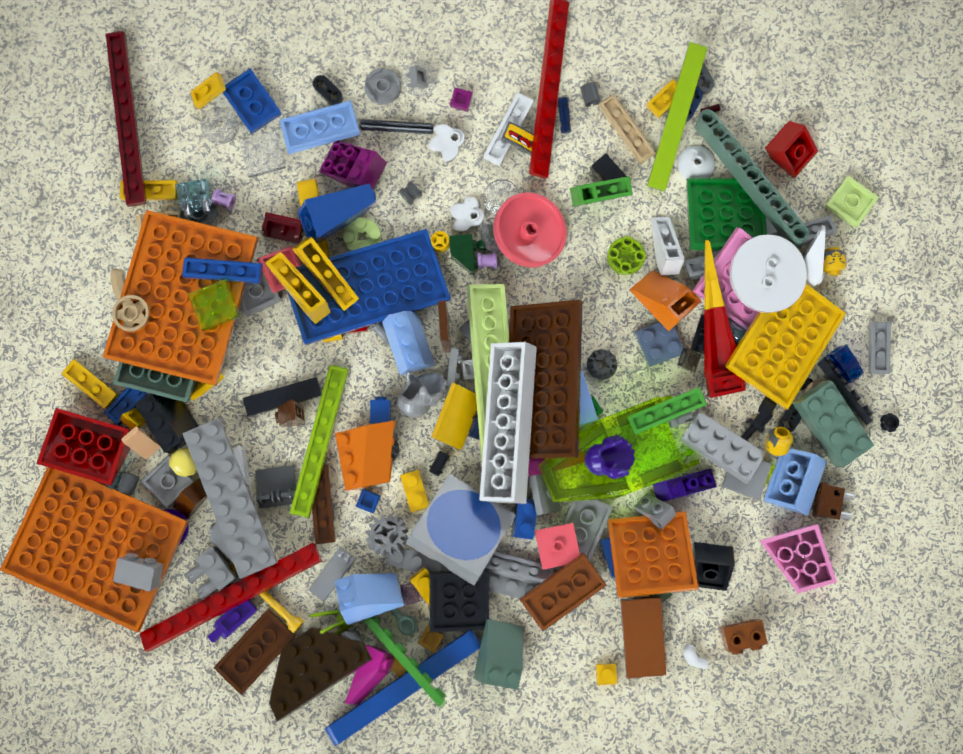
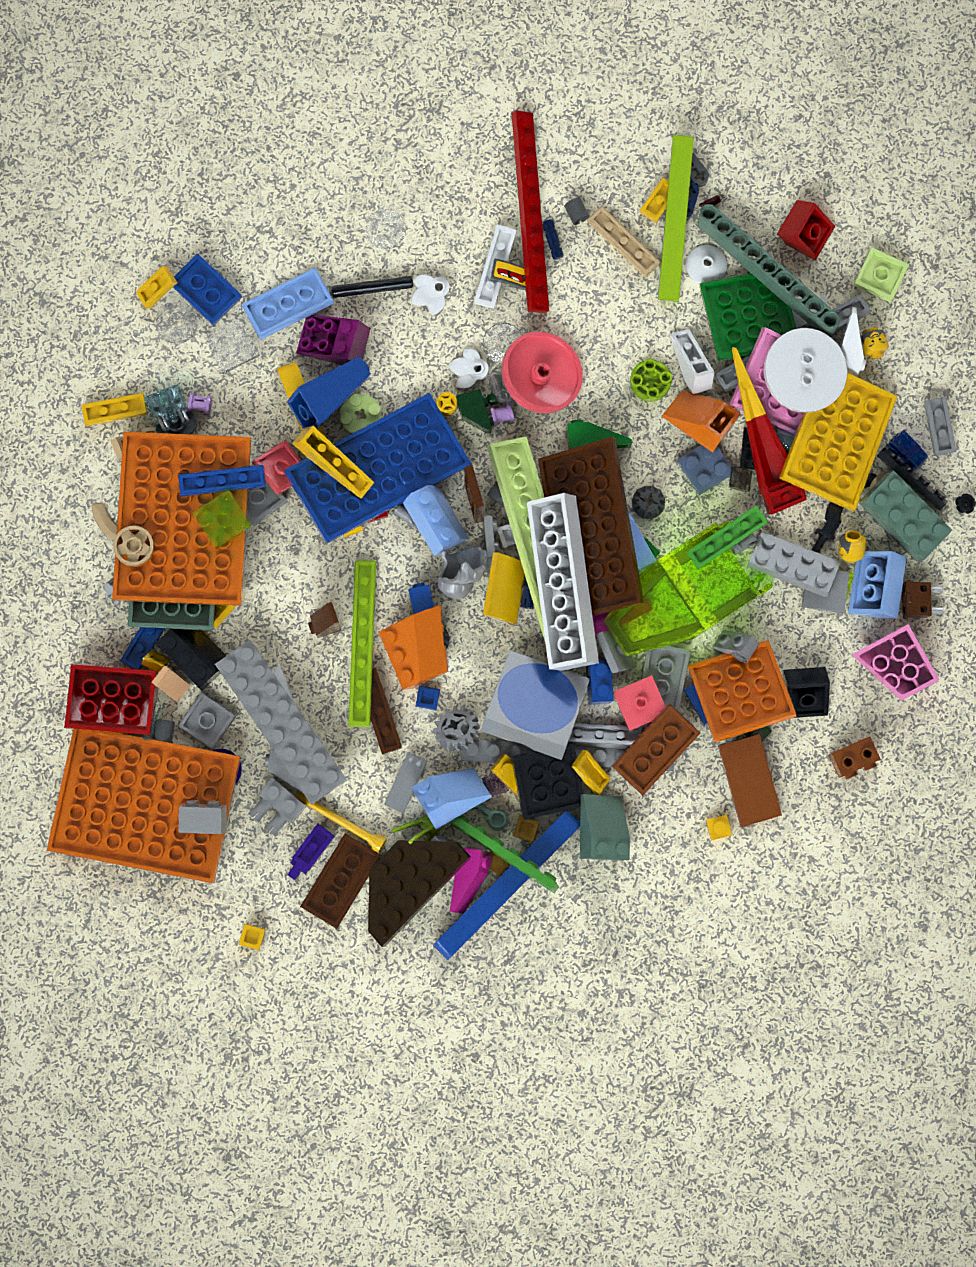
camera: 20 degrees left, 0 degrees up
(89, 384) = (98, 633): yellow plate -> none
(126, 119) = (72, 335): dark red plate -> none
(164, 686) = (252, 937): none -> yellow plate
(182, 462) = (220, 696): light yellow hair -> none
(191, 499) = (237, 732): reddish brown slope -> none
(230, 597) = (302, 828): red plate -> none
(273, 398) = (304, 607): black tile -> none
(275, 486) = (325, 702): dark grey hinge -> none
(282, 228) = (271, 422): dark red hinge -> none
(299, 288) = (309, 483): yellow slope -> none
(330, 87) = (284, 265): black beam -> none
(380, 91) = (348, 251): light grey tile -> none
(410, 193) = (403, 357): dark grey wheel -> none
(414, 491) = (475, 677): yellow plate -> none
(418, 77) = (385, 229): light grey tile -> none
(439, 463) = (495, 642): black pin -> none
(461, 99) = (436, 243): magenta plate -> none
(499, 600) = (590, 772): none -> yellow tile
(558, 291) = (583, 433): none -> green slope
(601, 191) = (609, 315): bright green slope -> none
(607, 168) = (616, 293): black tile -> none
(610, 457) = (677, 598): dark purple hair -> none
(684, 485) = (762, 613): dark purple slope -> none
(692, 658) = (806, 793): white arm -> none
(795, 419) = (856, 515): black beam -> none

